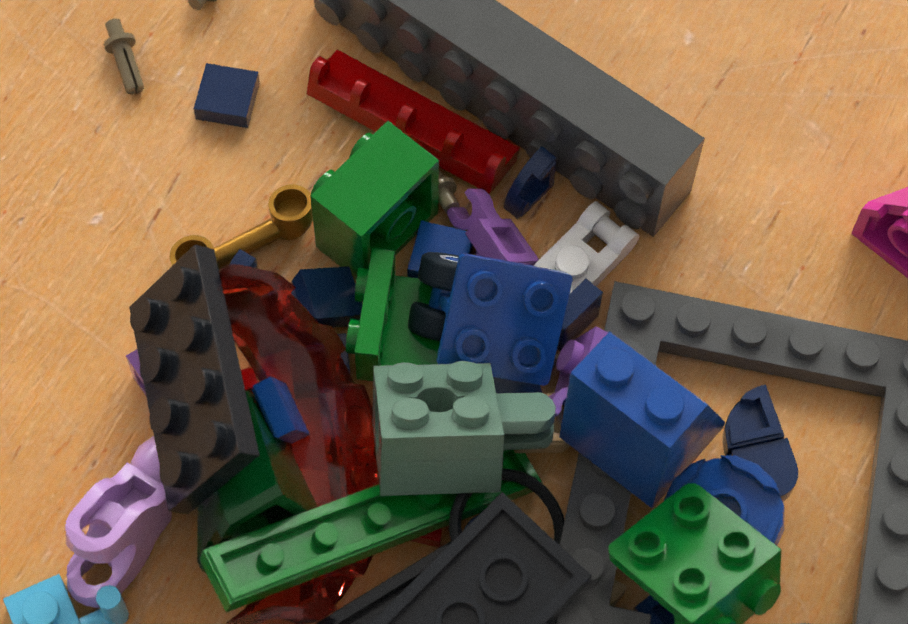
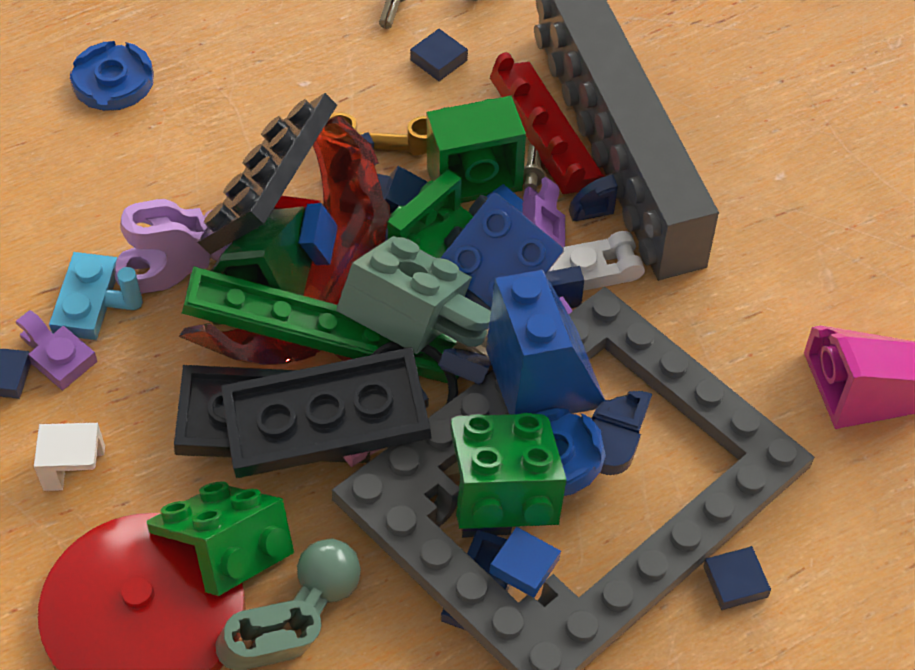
camera: 35 degrees right, 10 degrees down
(555, 467) = (465, 364): none -> dark blue tile

